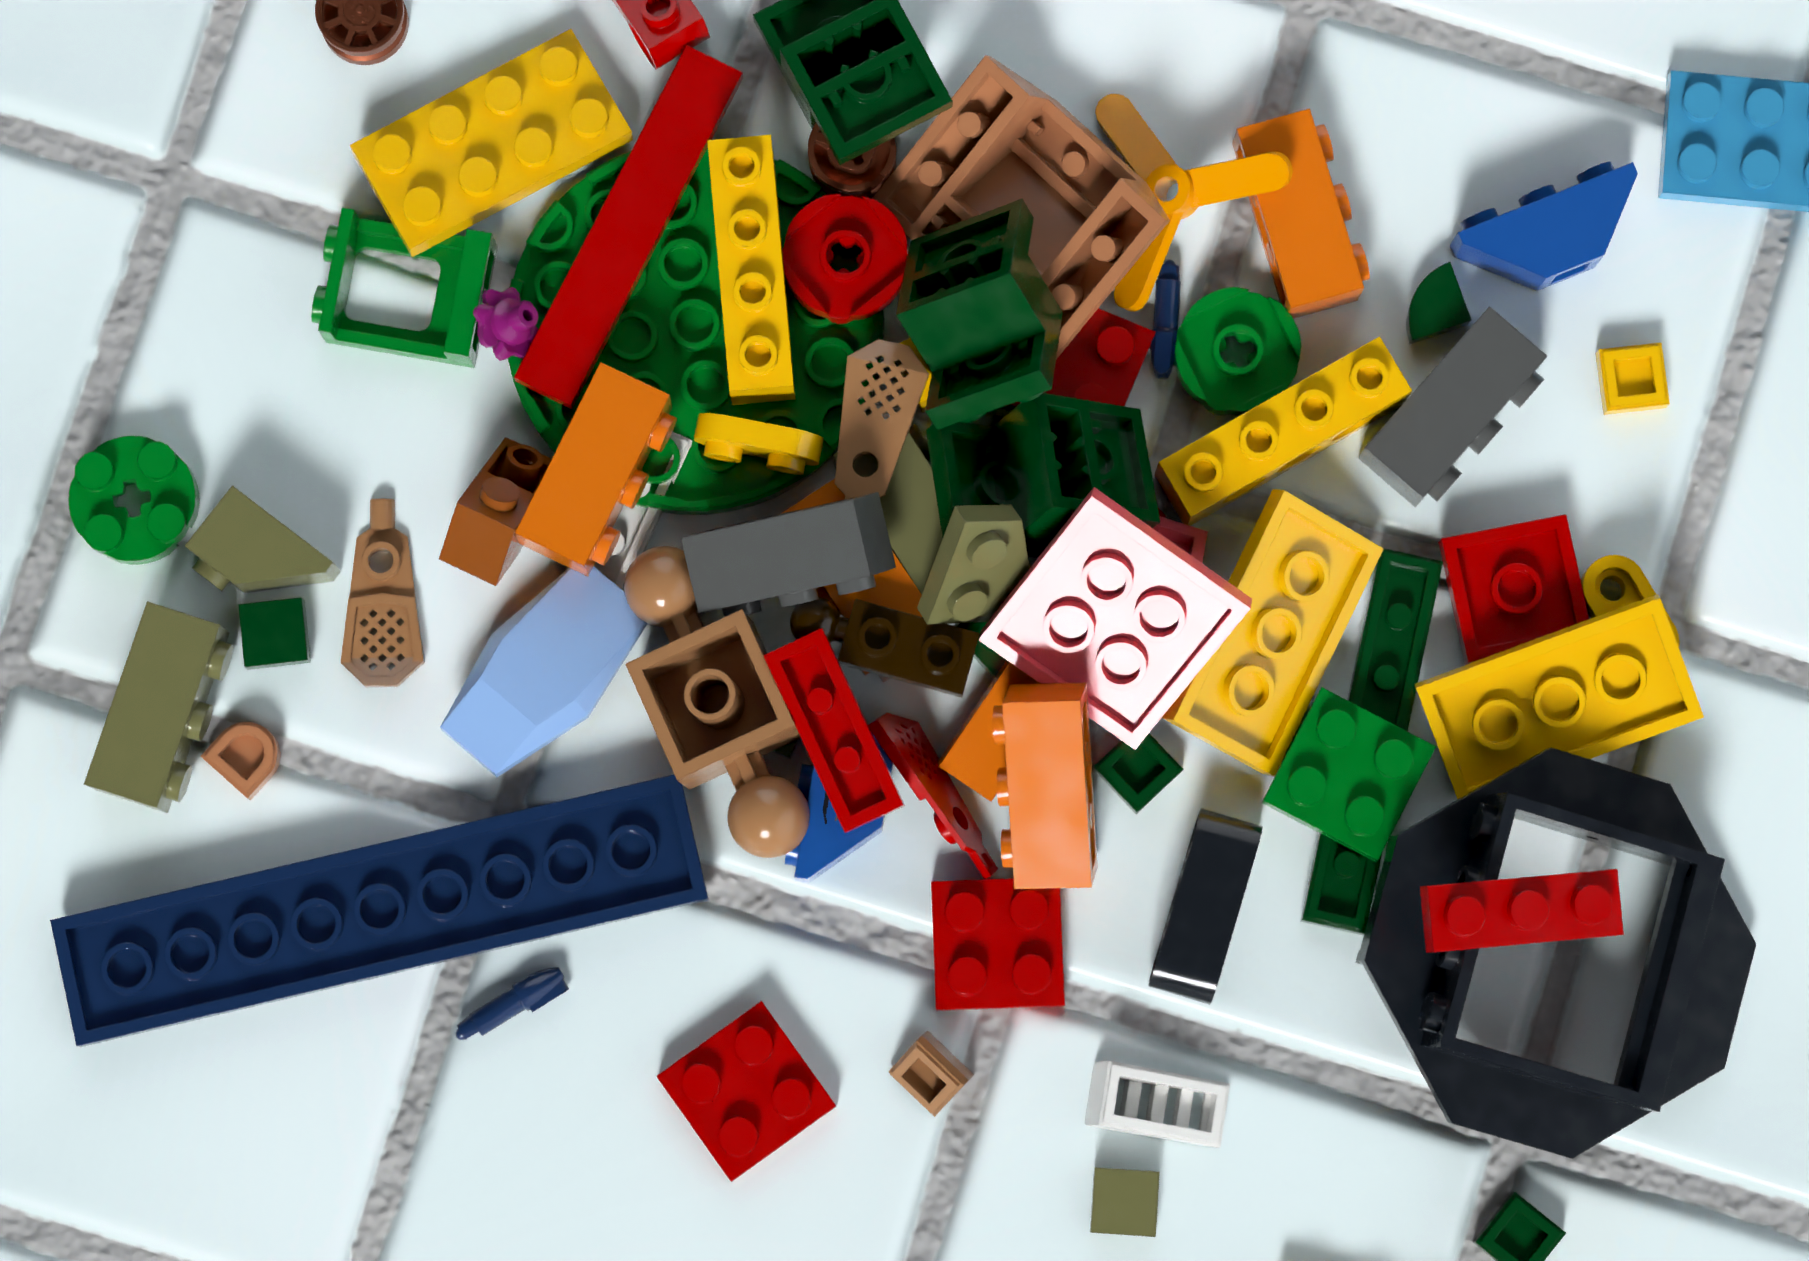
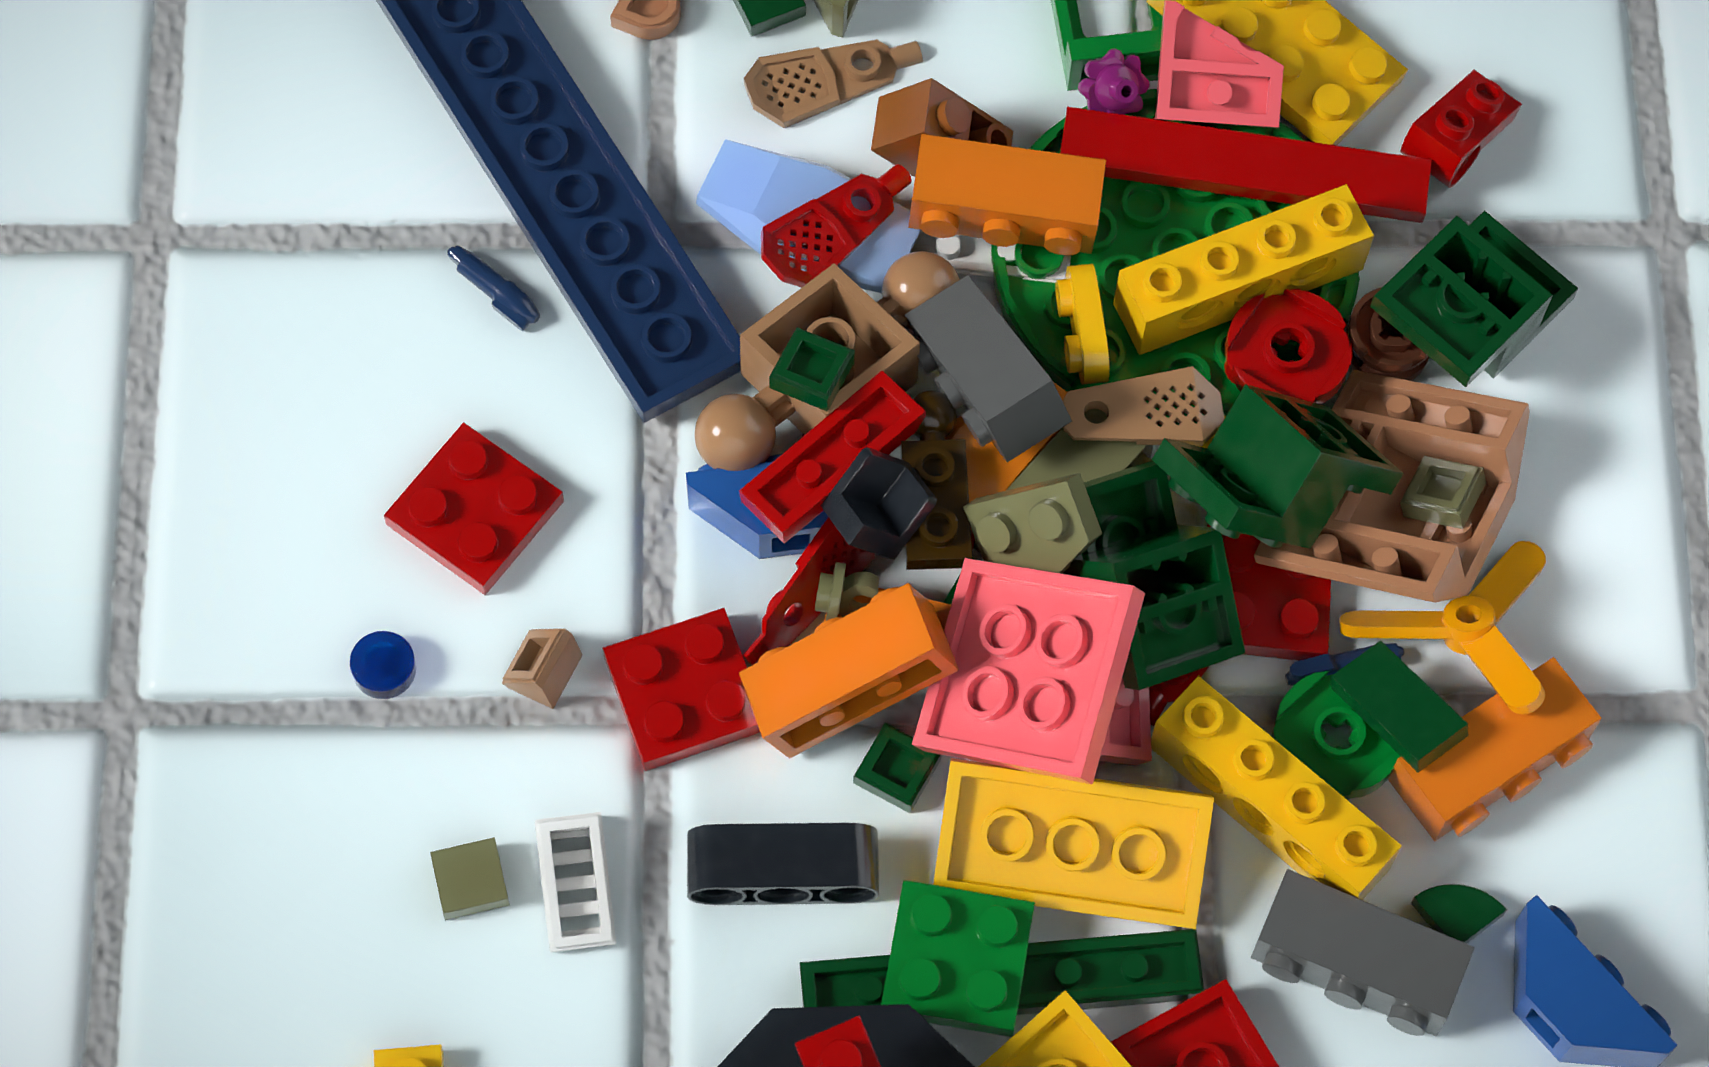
camera: 70 degrees right, 15 degrees down
(532, 222) = (1213, 75): none -> coral wing
(567, 644) = (837, 221): none -> red piece
(743, 722) = (812, 369): none -> dark green tile
(882, 1225) = (383, 664): none -> clear blue tile
(903, 703) = (879, 503): none -> black panel
(971, 763) = (837, 593): none -> olive plate
(1035, 165) = (1443, 492): none -> olive tile
(1242, 287) = (1399, 706): none -> dark green tile

